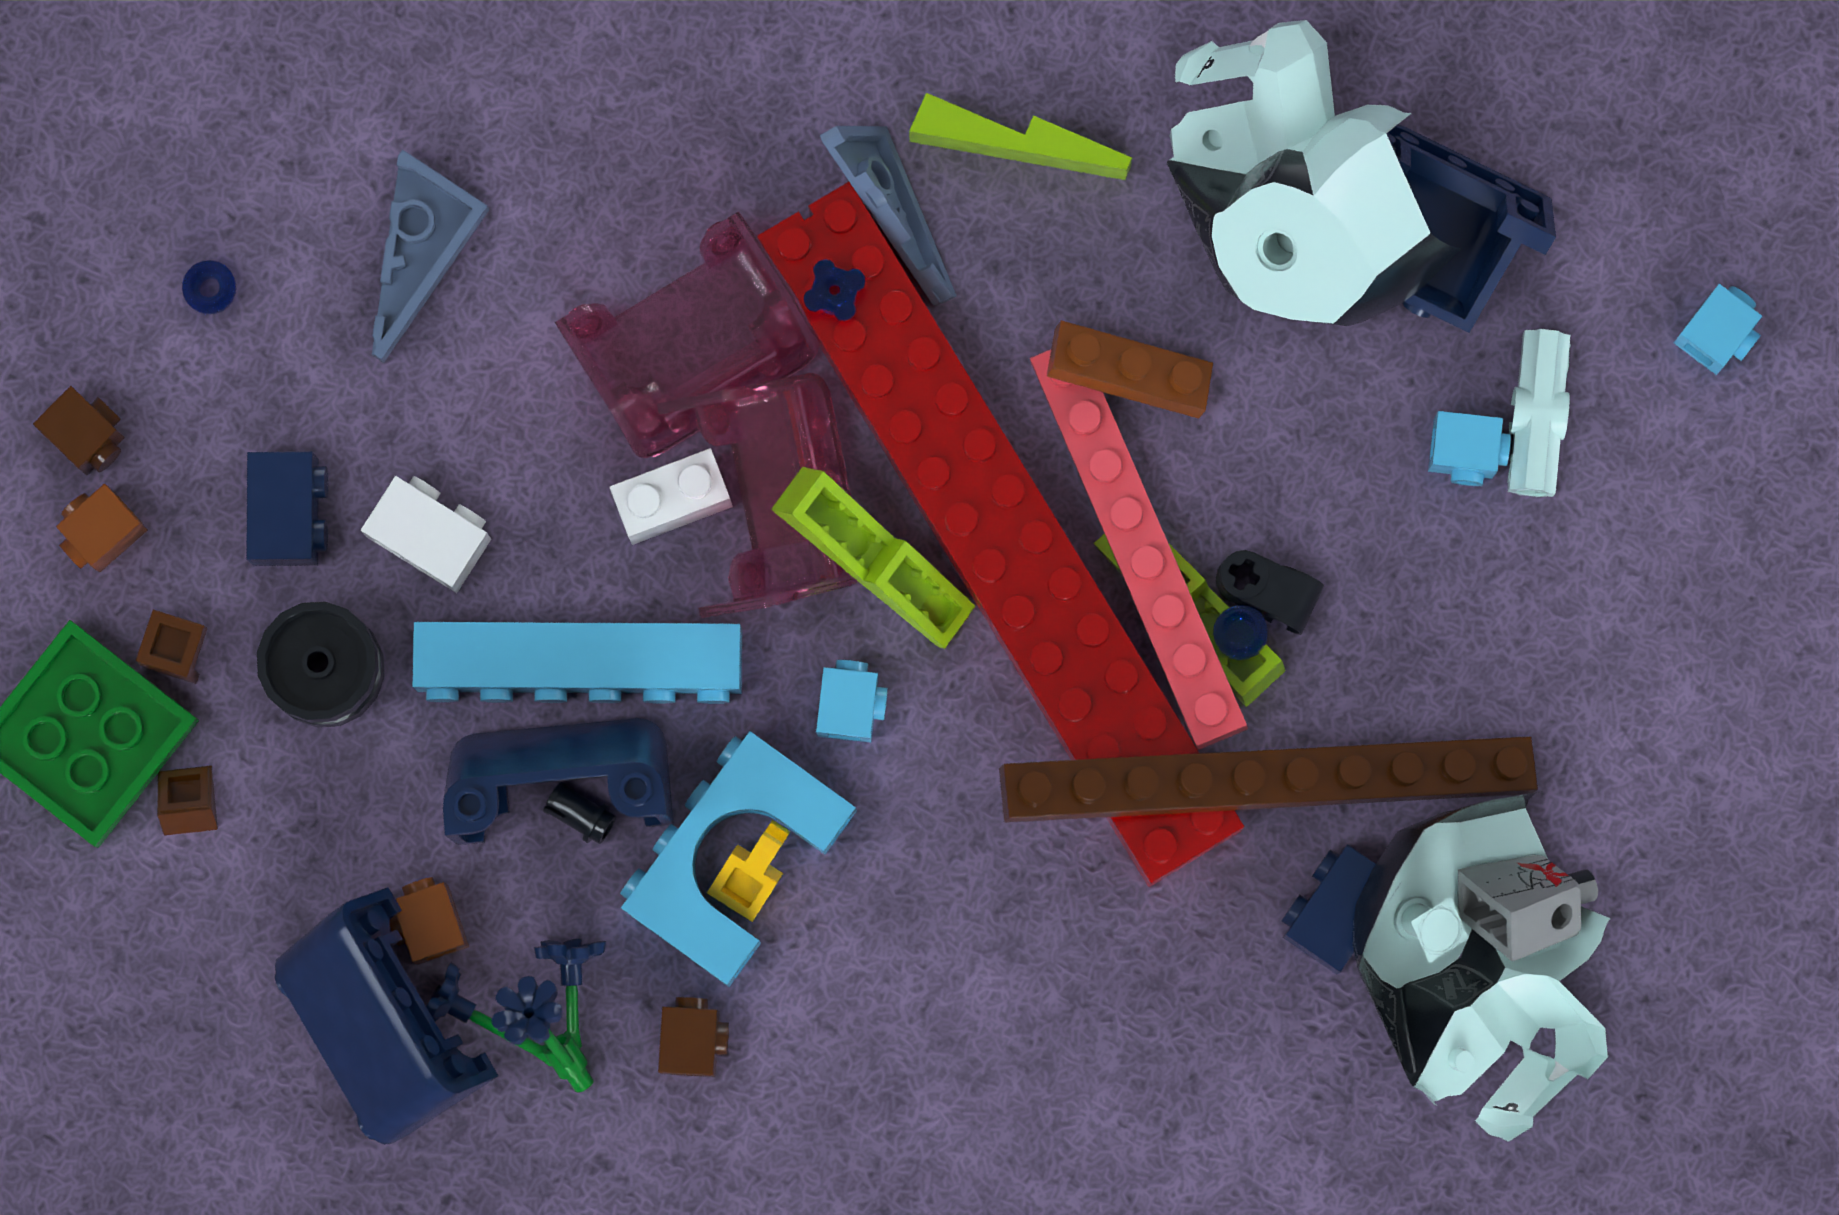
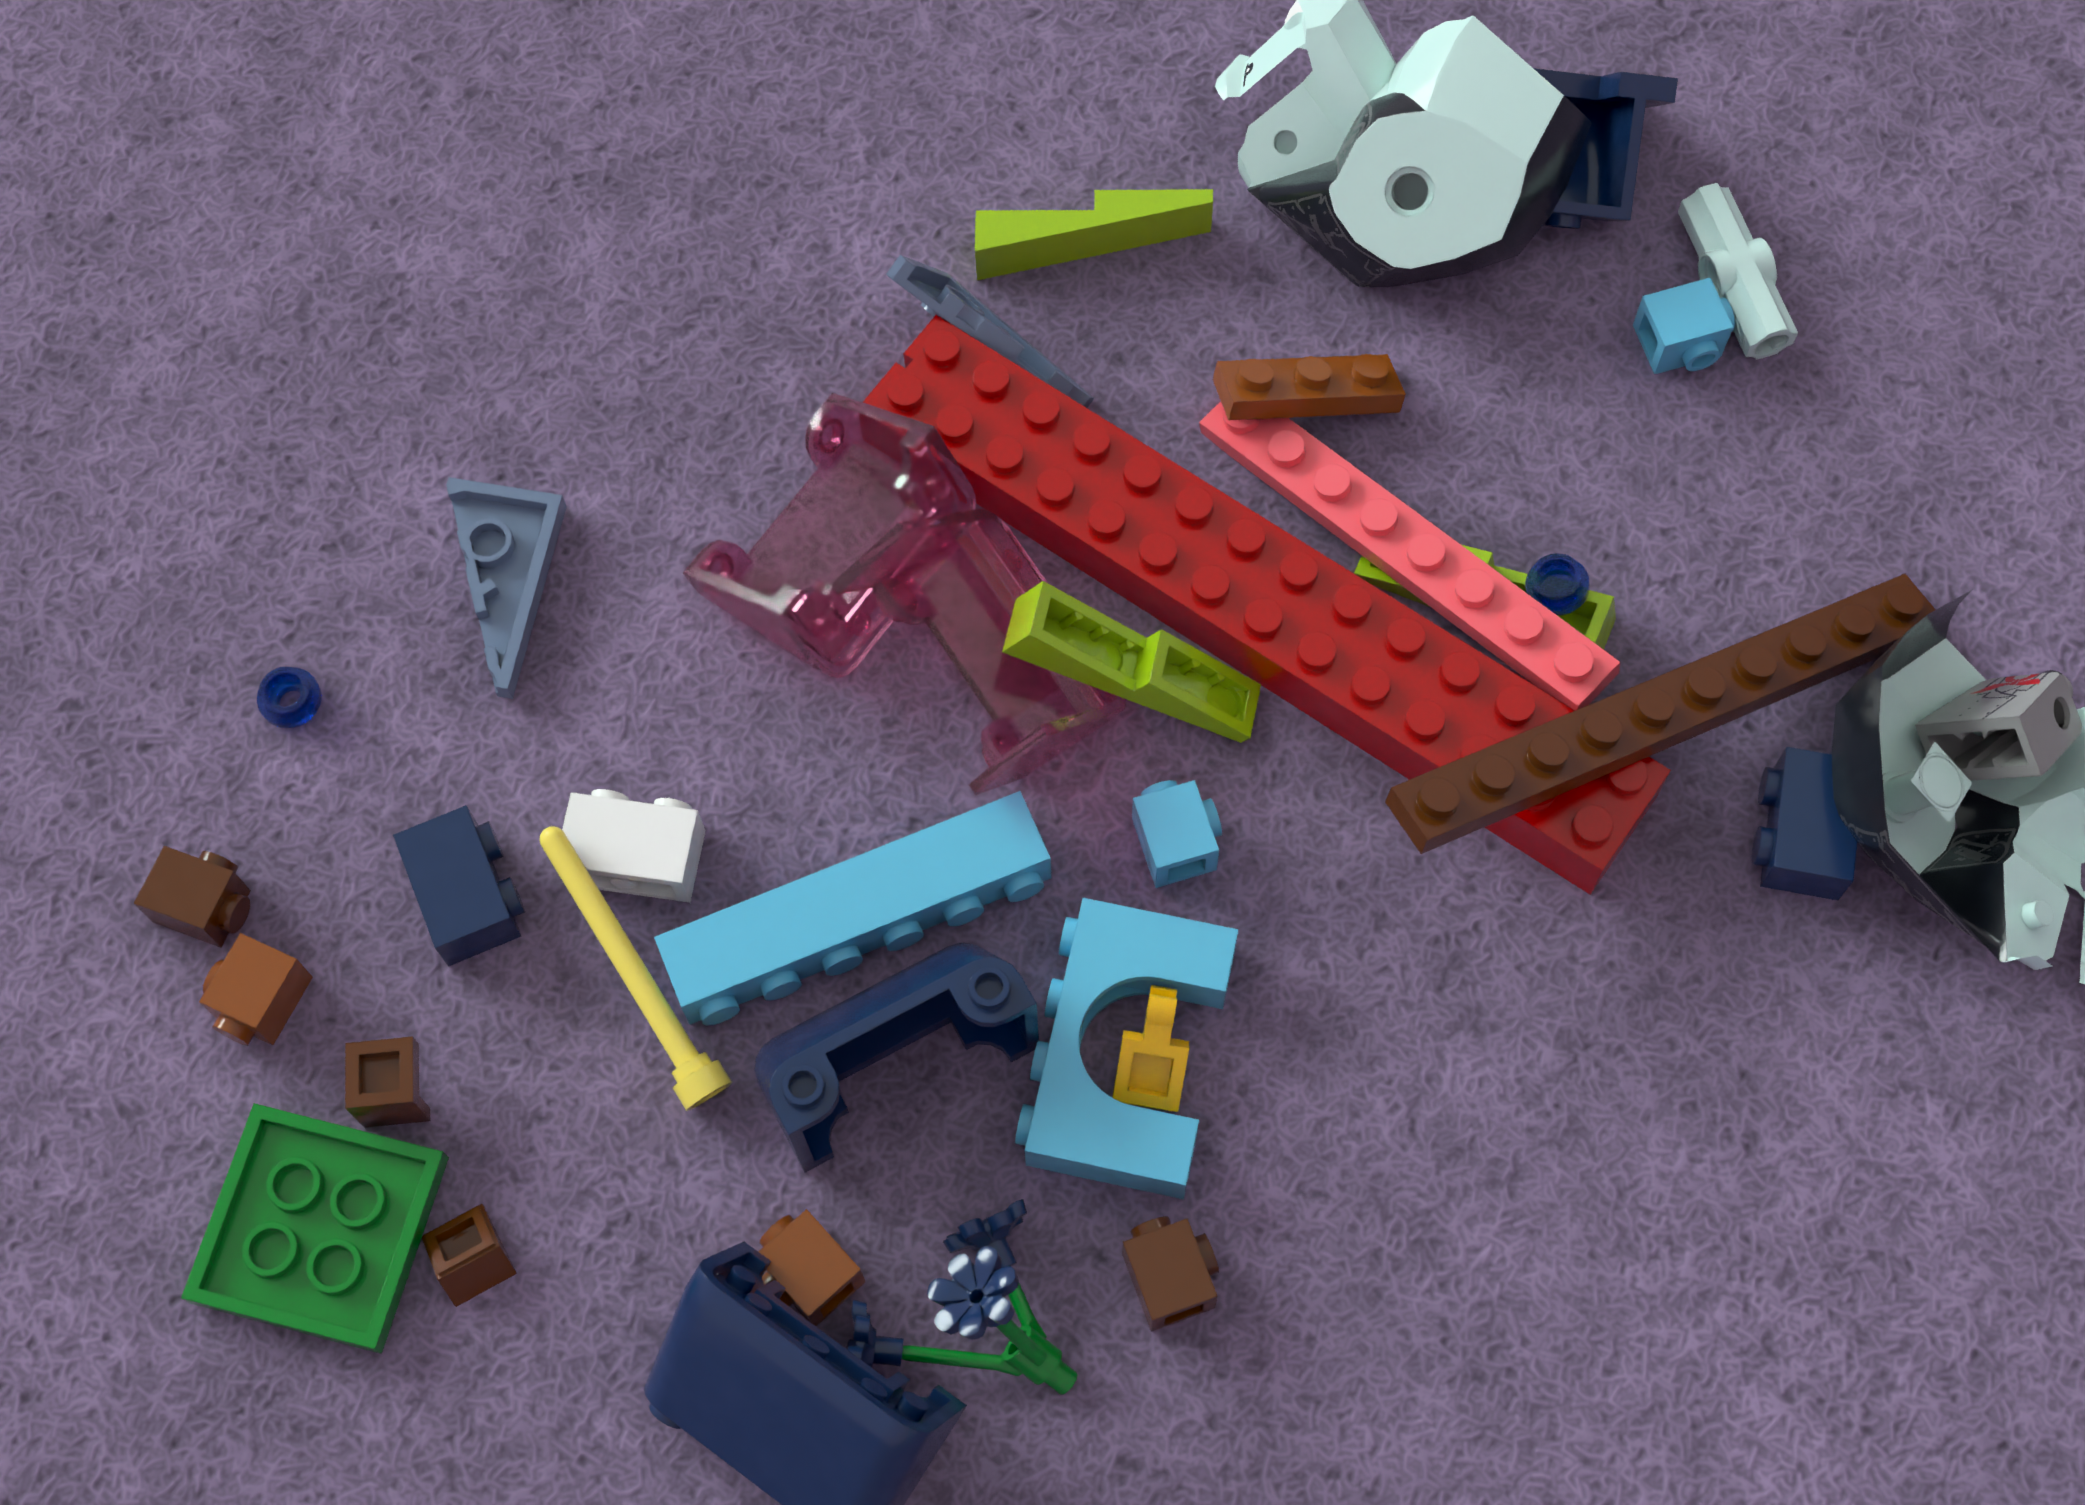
camera: 25 degrees left, 15 degrees down
(339, 691) = (540, 999): black wheel -> none
(405, 737) = (695, 1073): none -> light yellow piece
(580, 813) = (930, 1075): black pin -> none
(671, 496) = (885, 698): white brick -> none
(841, 304) = (970, 425): clear blue plate -> none
(1278, 589) = (1575, 529): black piece -> none
(1721, 328) = (1868, 129): medium azure brick -> none

